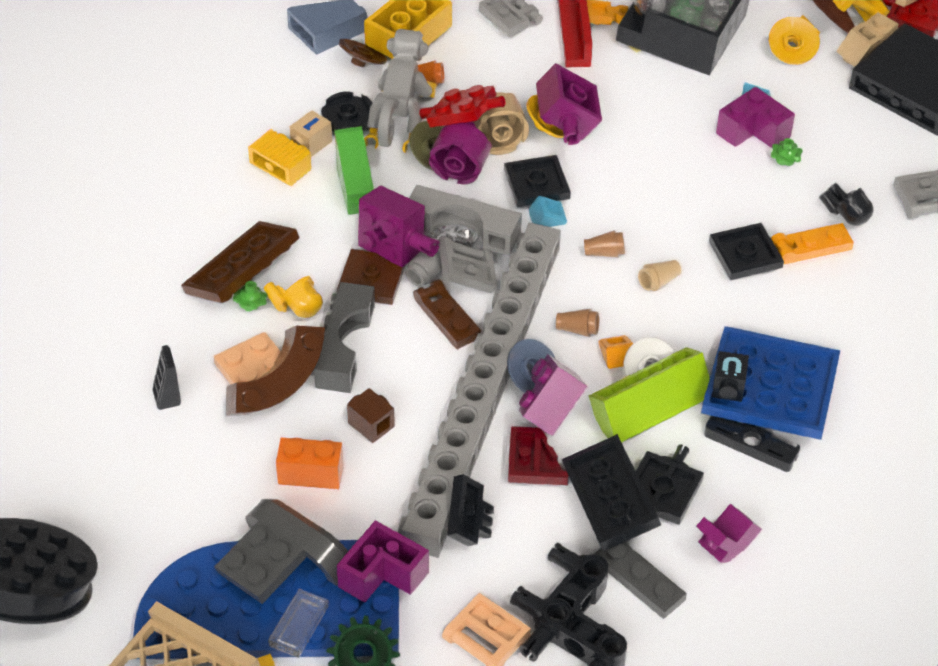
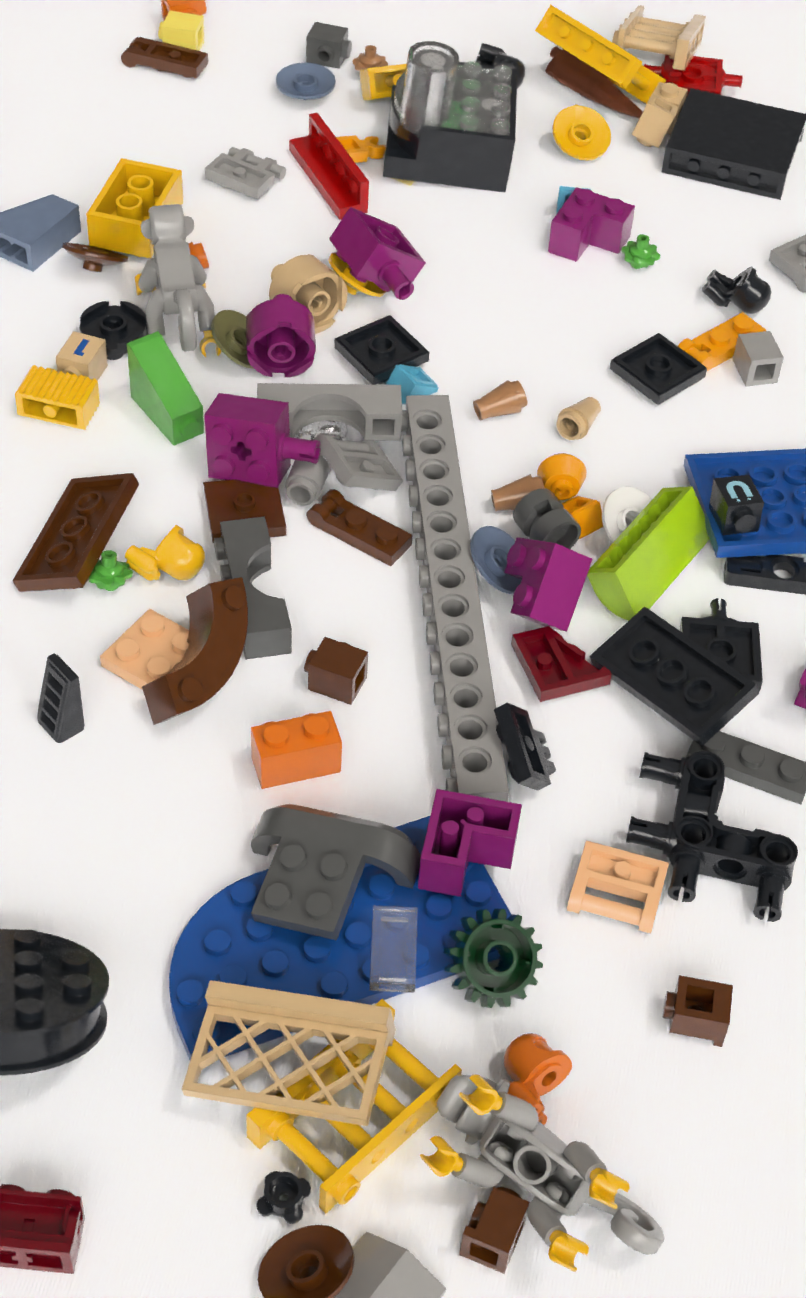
camera: 25 degrees left, 0 degrees up
(462, 106) = (265, 280): red plate -> none
(584, 349) = (545, 519): none -> dark grey wheel
(617, 316) = (562, 475): none -> light orange cone
(831, 264) = (758, 358): none -> light grey brick

